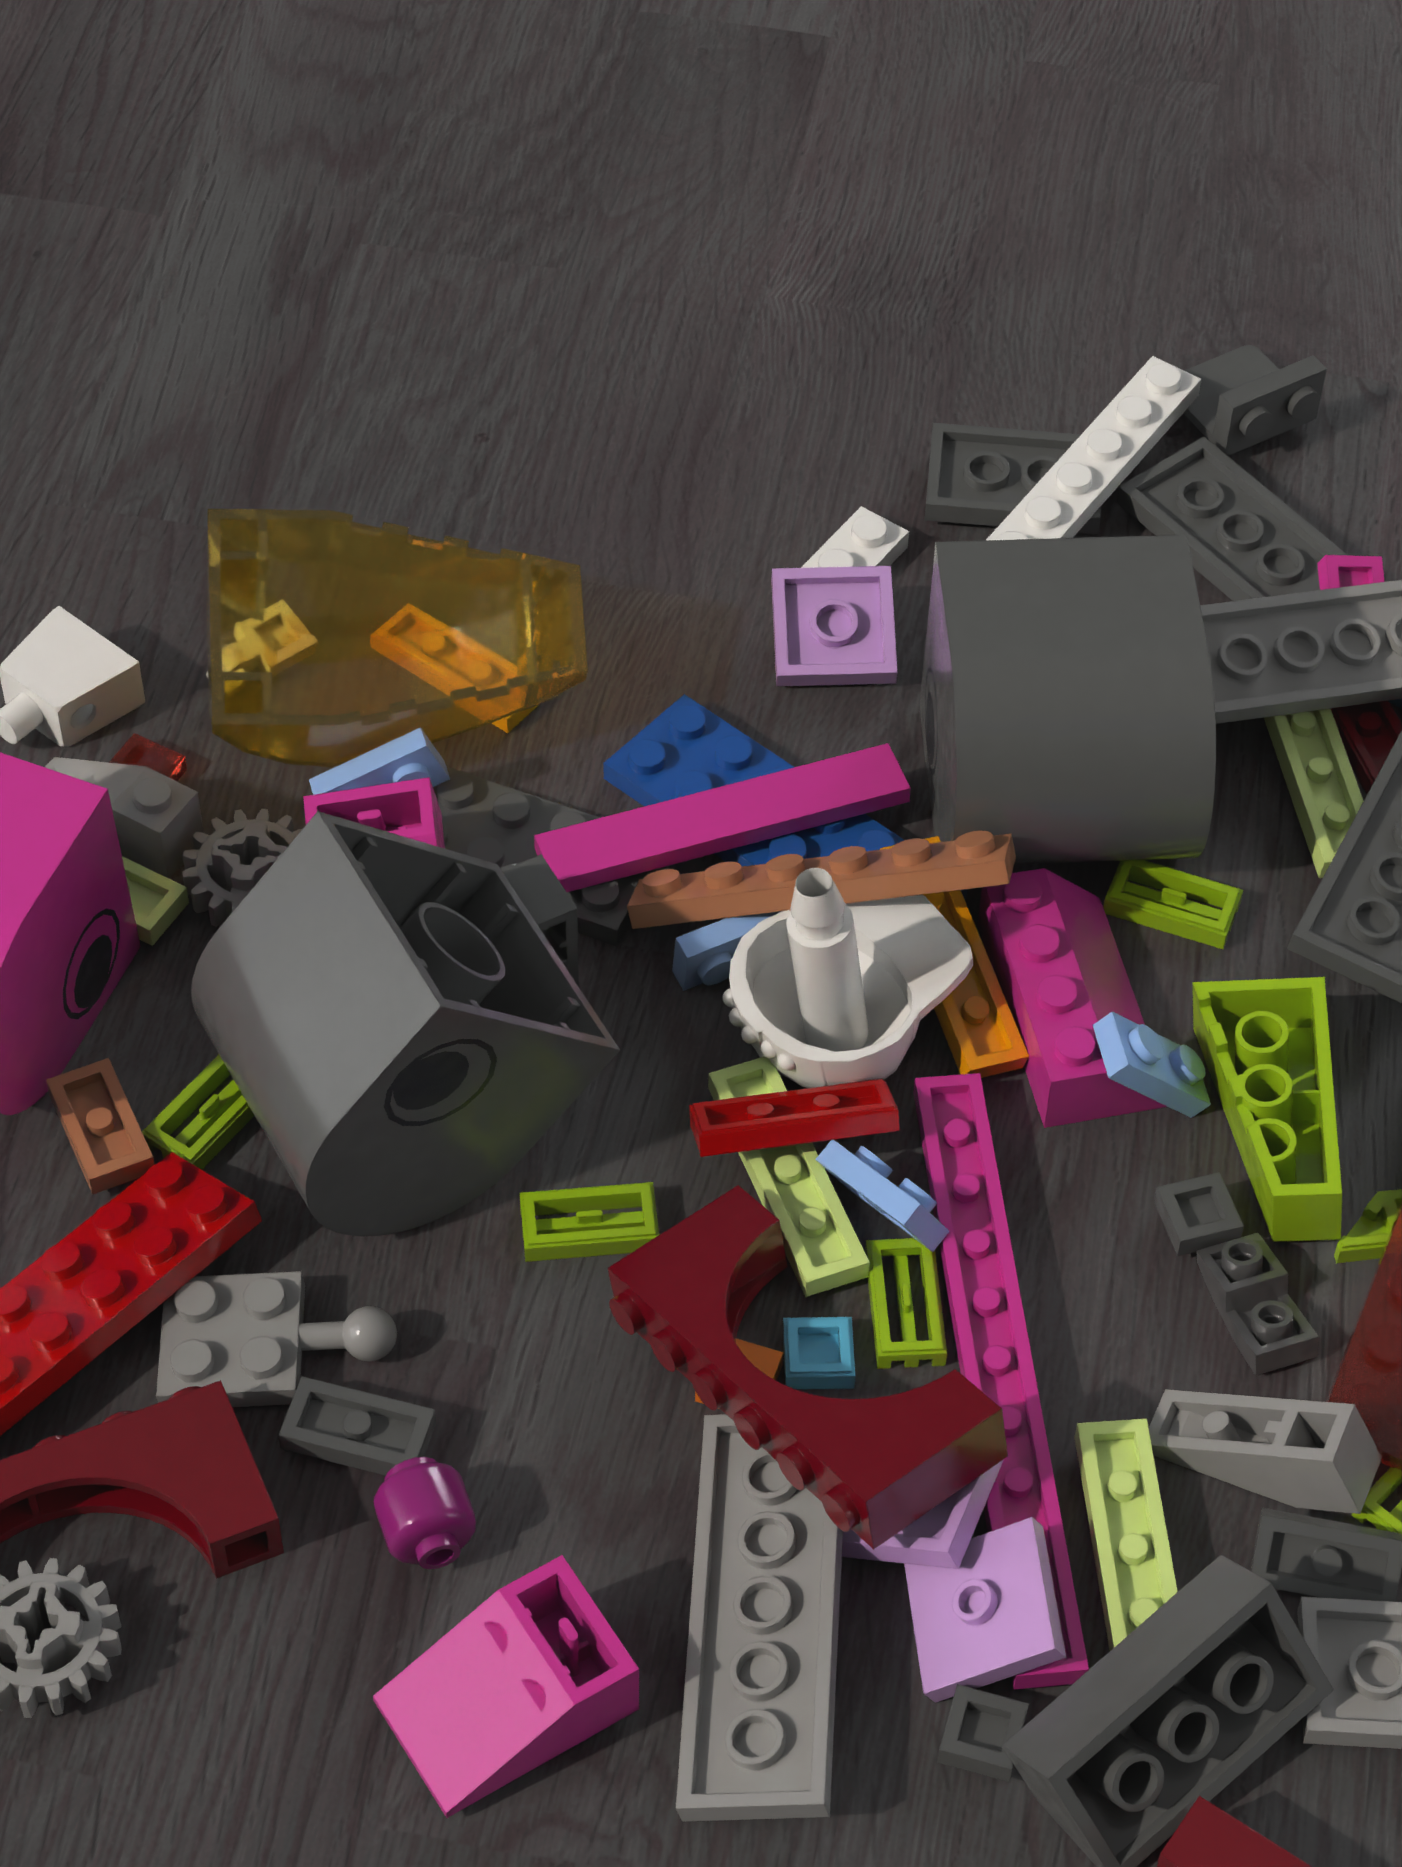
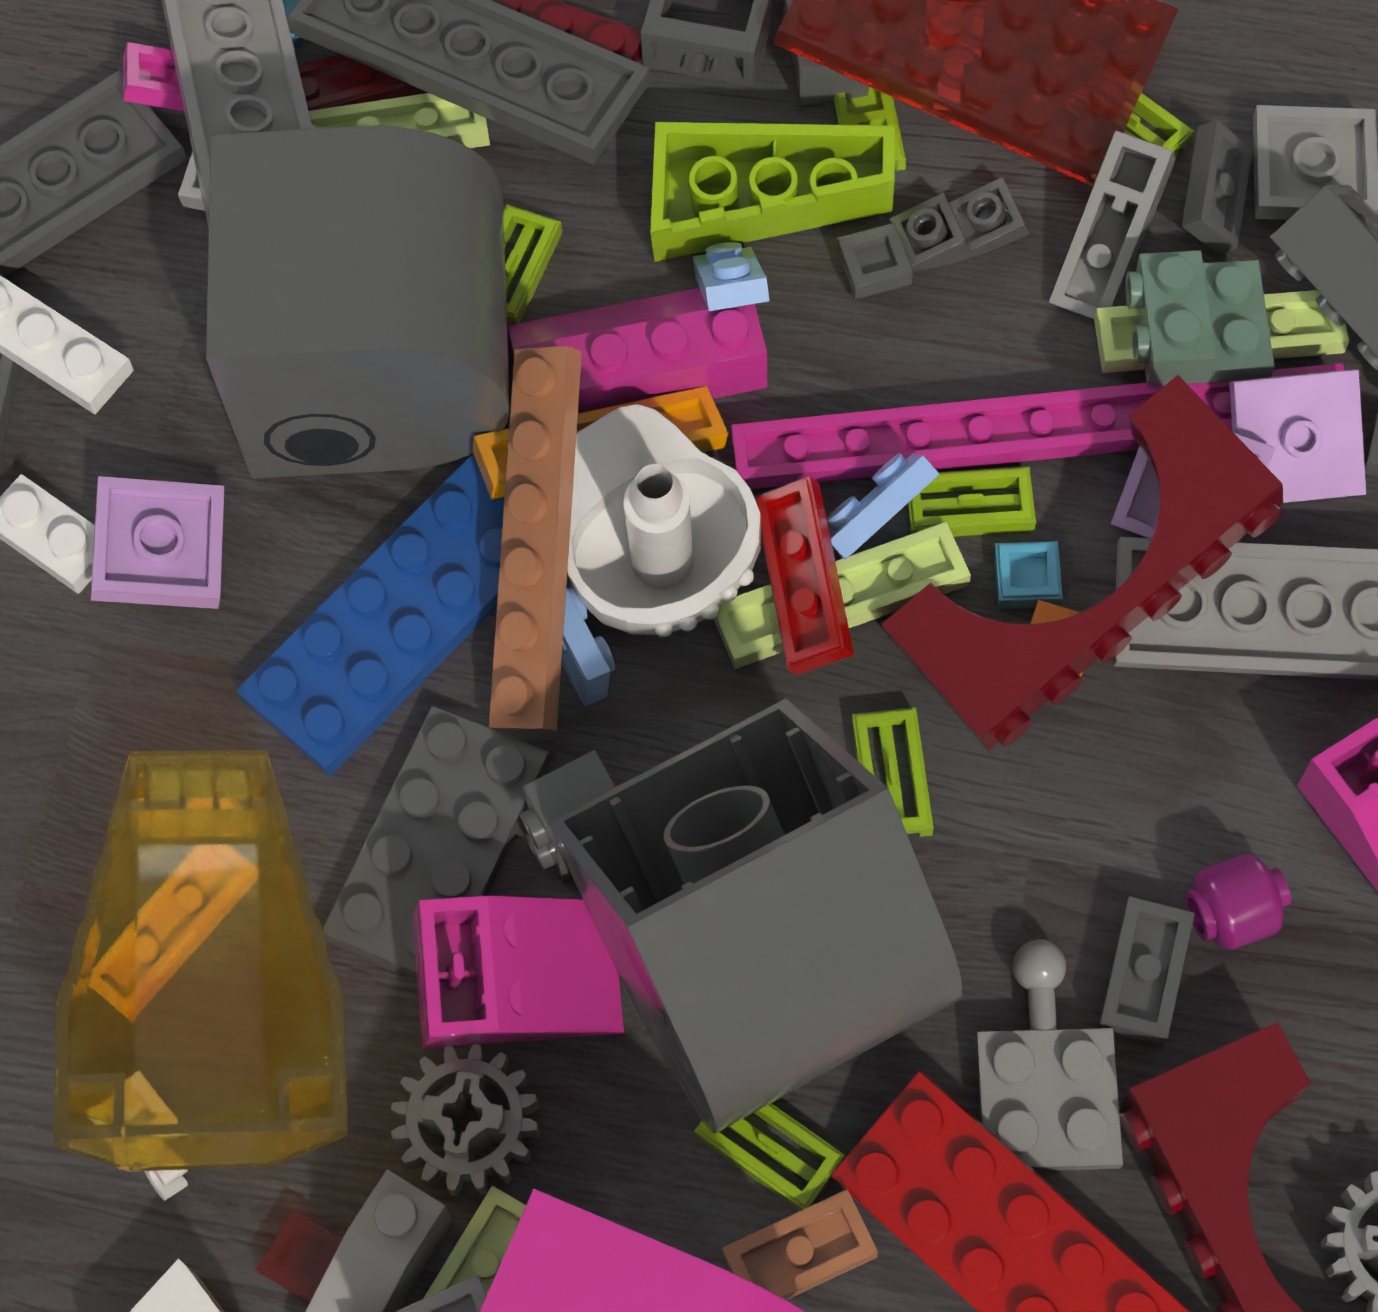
camera: 85 degrees left, 15 degrees up
(396, 761) = (369, 1011): light blue plate -> none
(724, 818) = (427, 647): dark pink tile -> none
(1127, 1505) = (1199, 319): none -> sand green plate

